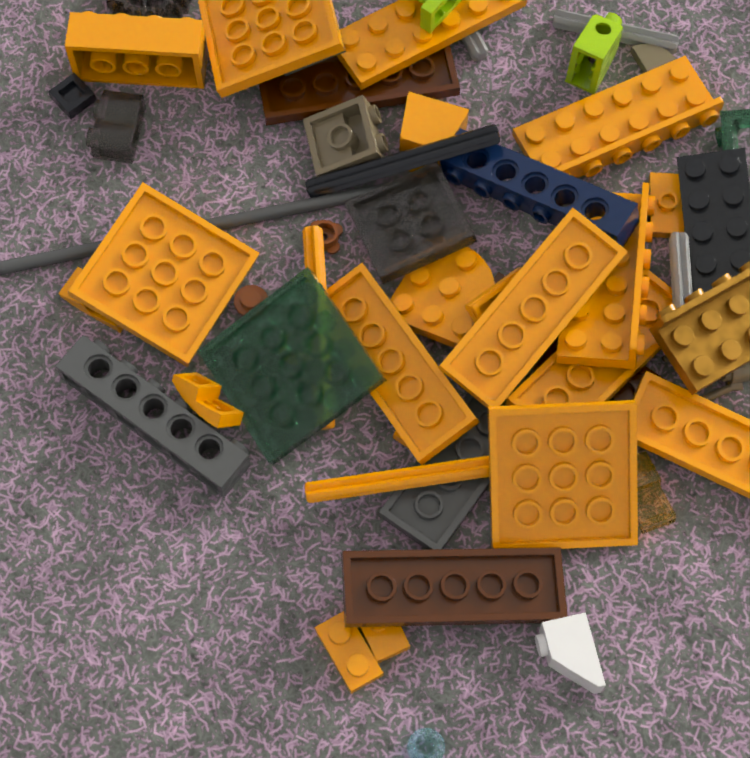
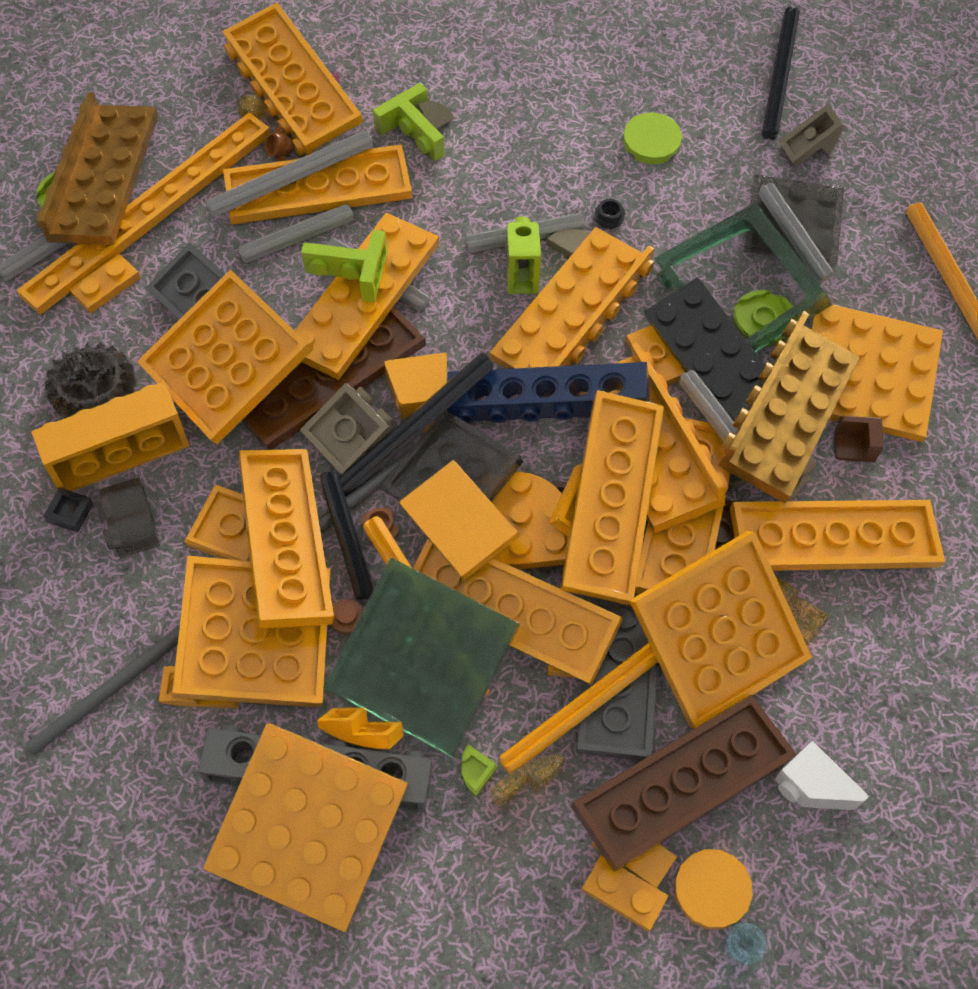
camera: 30 degrees left, 5 degrees down
(117, 455) = (306, 826): none -> light orange plate
(199, 175) = (221, 526): none -> light orange tile
(232, 206) = (284, 539): none -> light orange plate
(285, 486) = (476, 770): none -> lime tile
(290, 228) = (346, 535): none -> black axle
(333, 513) = (535, 774): none -> clear yellow slope
(388, 264) = (459, 519): none -> light orange tile
(425, 689) = (713, 889): none -> light orange tile
(711, 42) = (613, 207): none -> black plate

